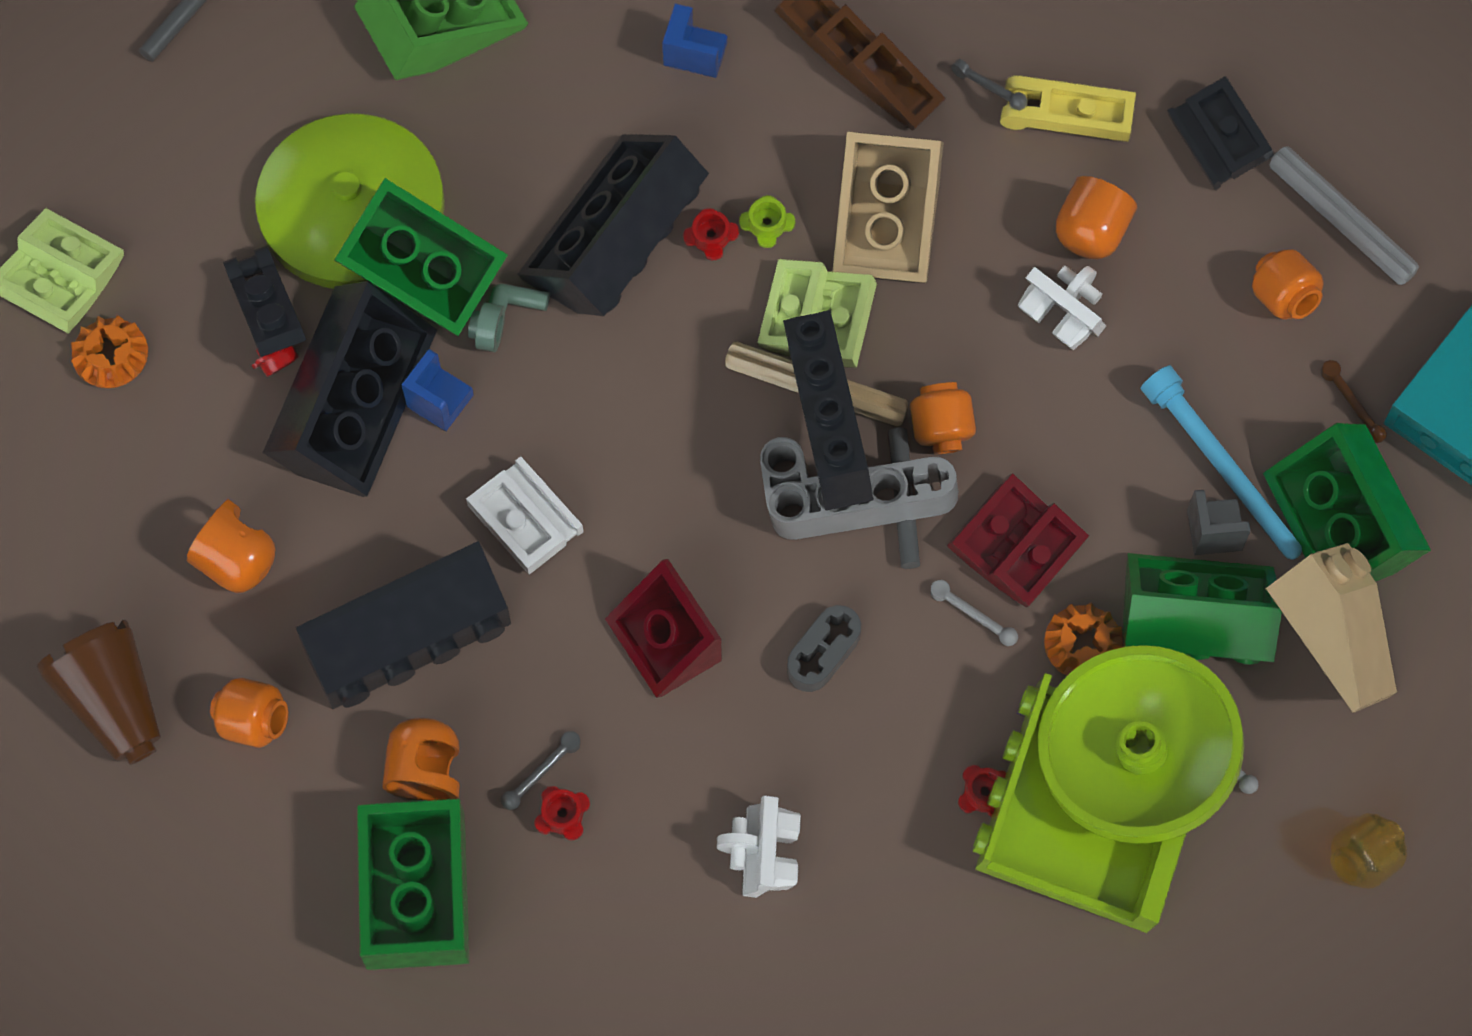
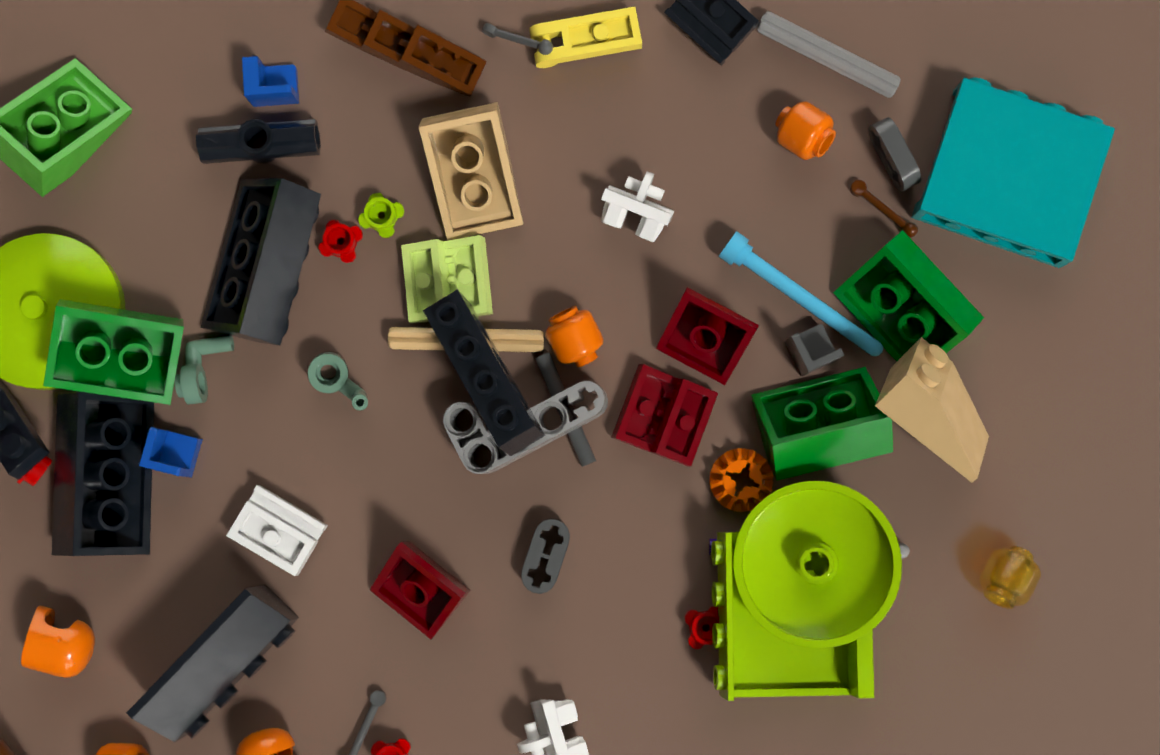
camera: 15 degrees left, 15 degrees up
(631, 94) = (235, 141): none -> black piece
(656, 382) = (339, 382): none -> sand green plate
(941, 591) = (682, 495): light grey hinge -> none
(1094, 218) = (637, 128): orange helmet -> none
(1098, 465) = (706, 336): none -> dark red slope
(1384, 343) = (894, 154): none -> dark grey beam

